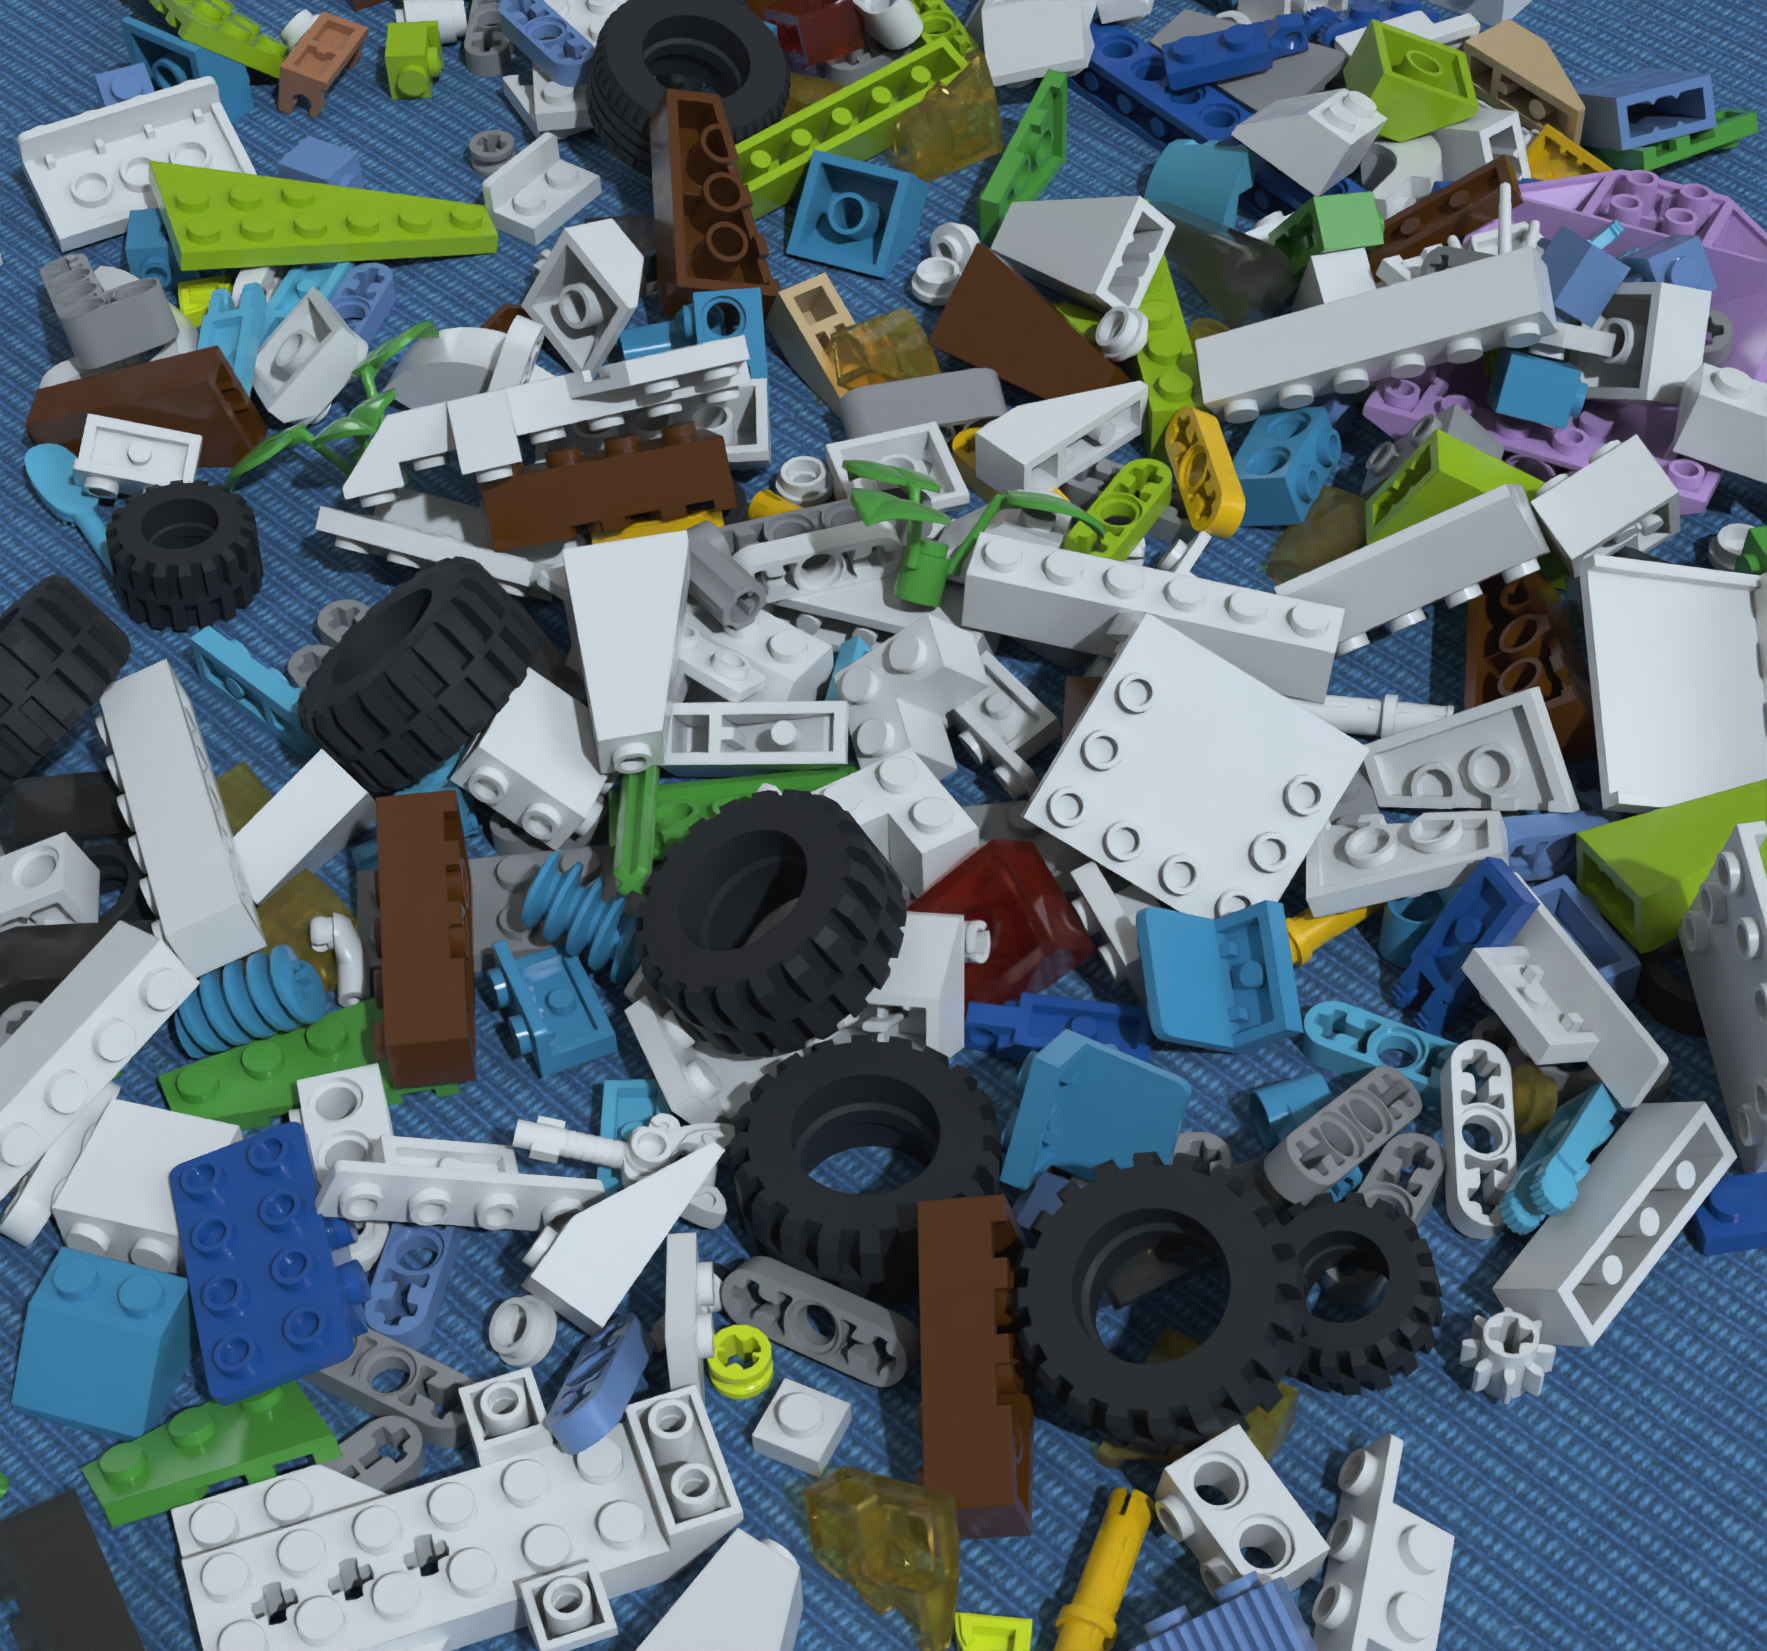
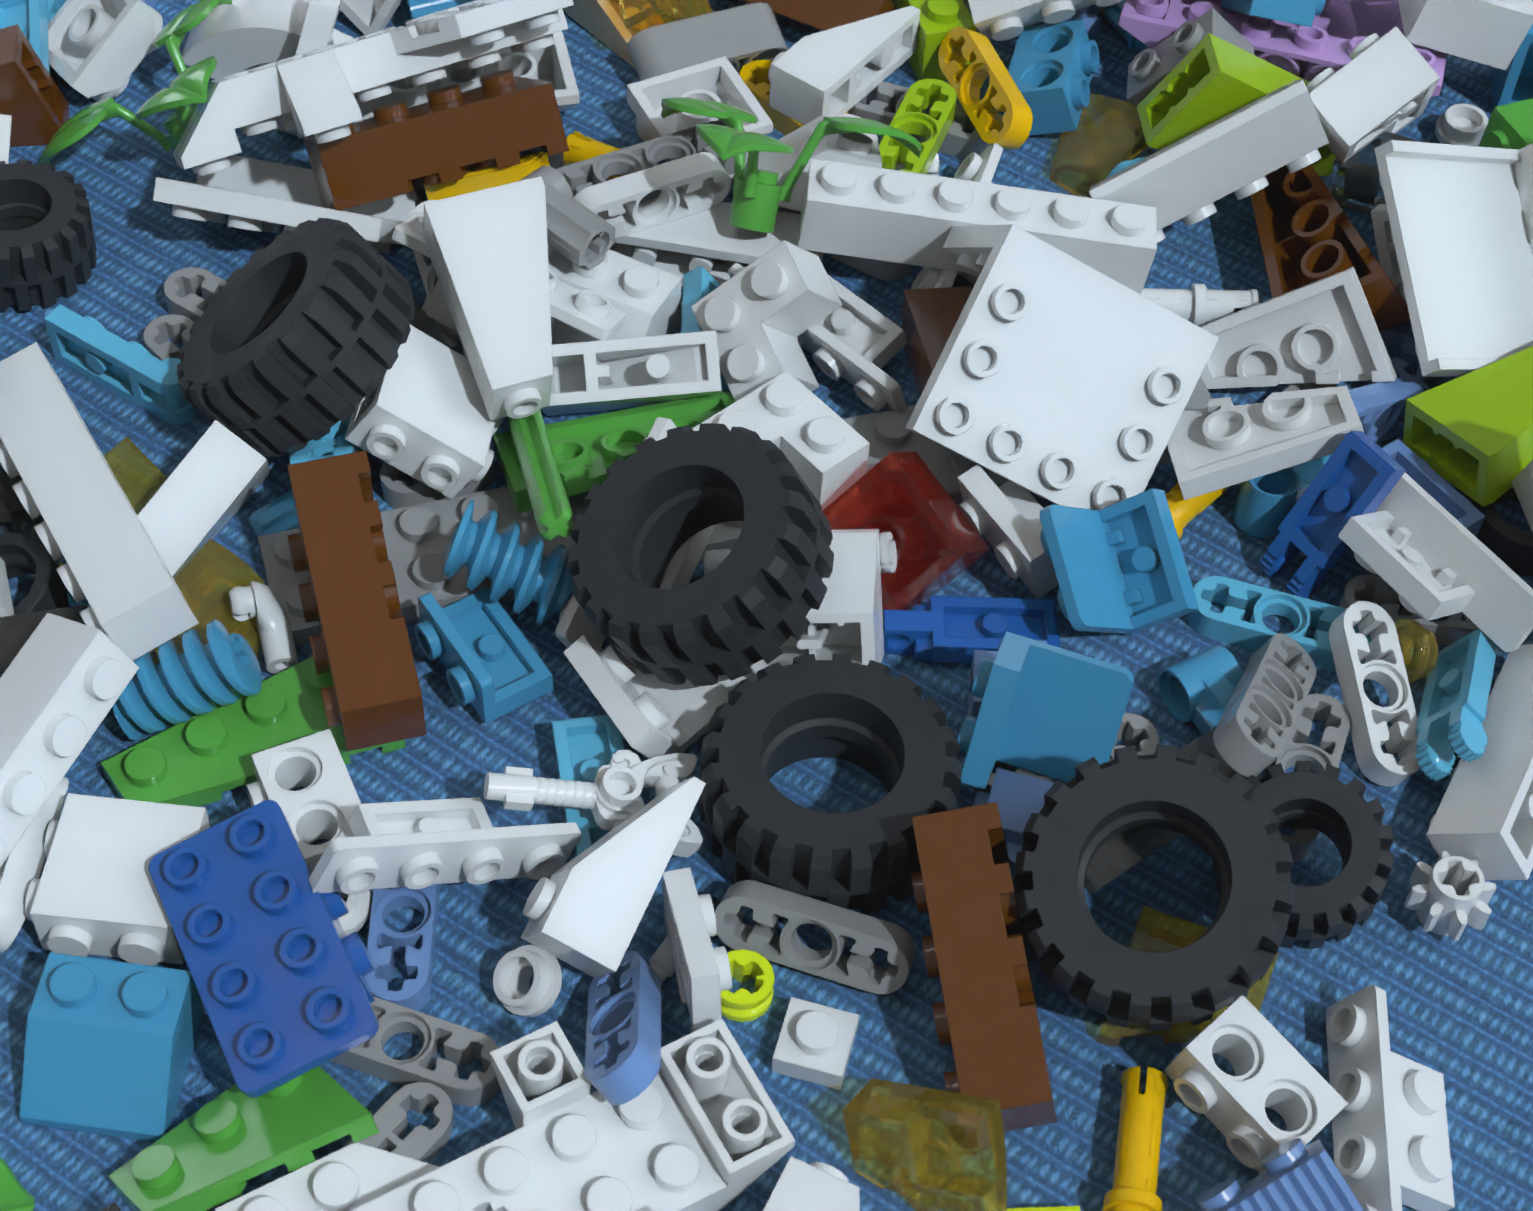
camera: 15 degrees left, 5 degrees up
(804, 481) = (607, 121): white plate -> none

